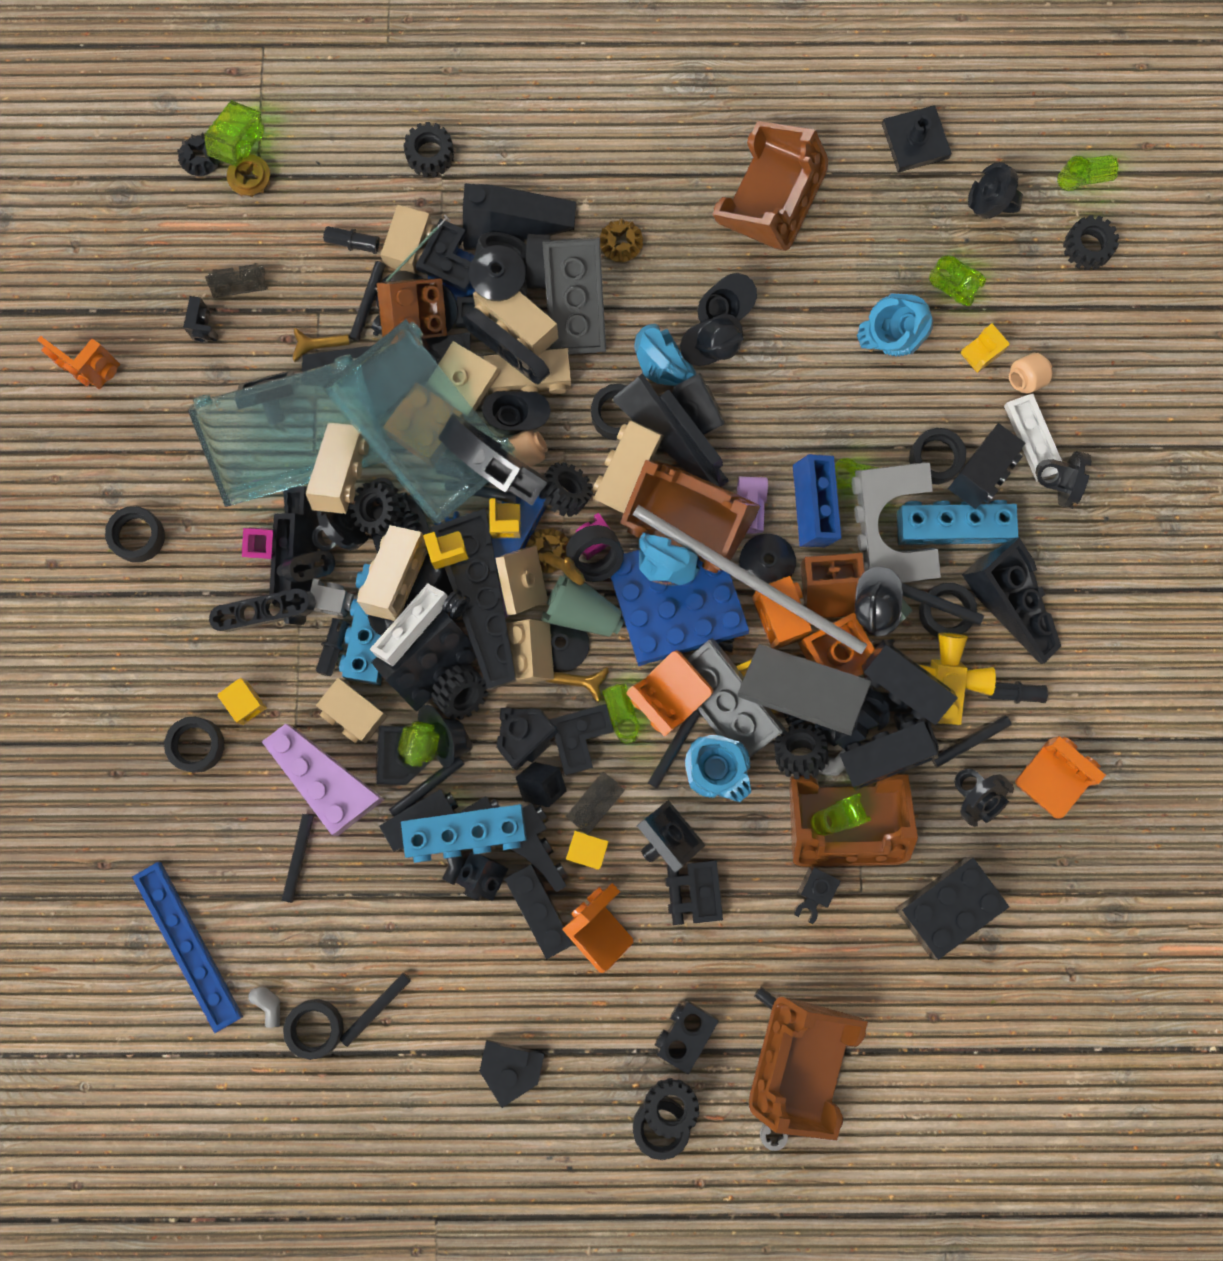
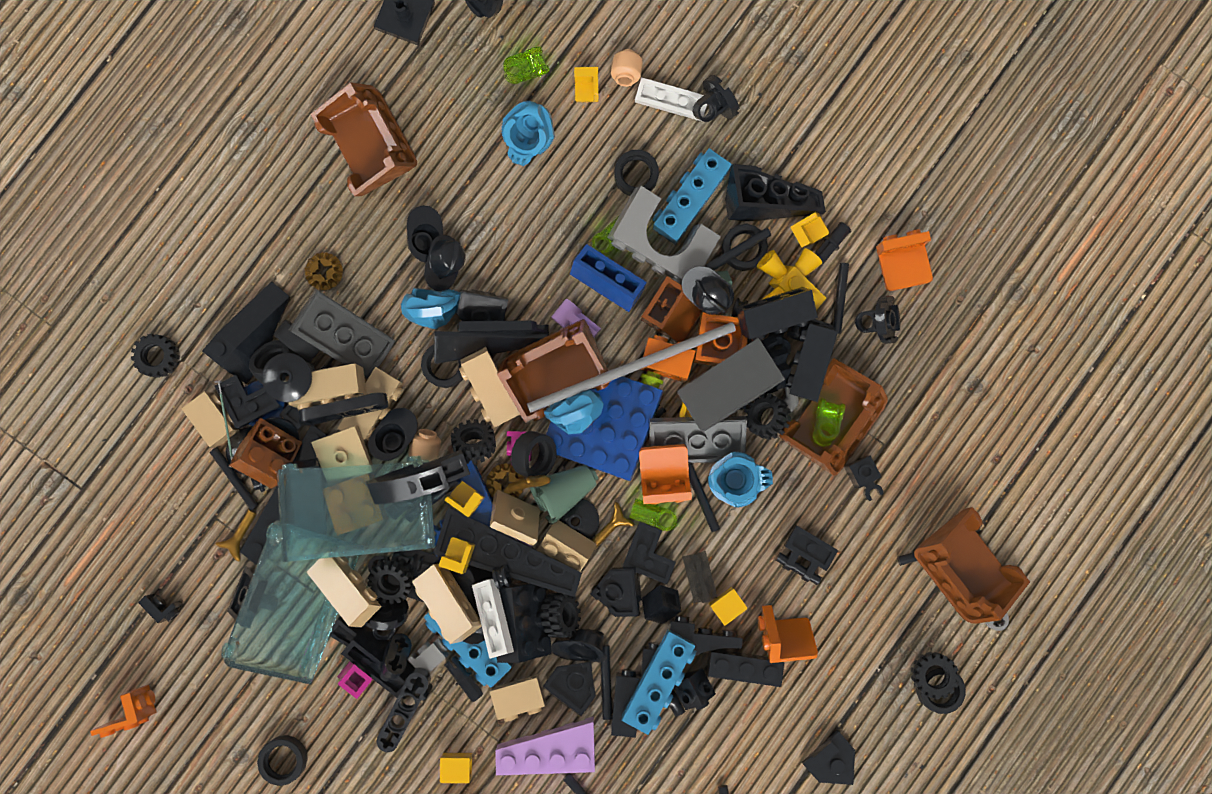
camera: 55 degrees left, 5 degrees up
(196, 165) = (42, 526): black gear -> none
(230, 282) = (145, 568): clear smoke hinge -> none
(234, 133) = (38, 485): clear neon green brick -> none
(247, 165) = (67, 493): pearl gold gear -> none
(351, 239) = (180, 457): black axle -> none
(418, 743) = (575, 668): clear neon green head -> none
(669, 837) = (760, 545): black tile -> none
(693, 1039) = (899, 627): black brick -> none
(752, 614) = (651, 379): none -> lime plate
(768, 544) = (619, 352): black dish -> none
(952, 908) = (938, 395): black brick -> none
(988, 467) = (670, 147): black brick -> none
(1014, 660) = (810, 230): none -> yellow panel

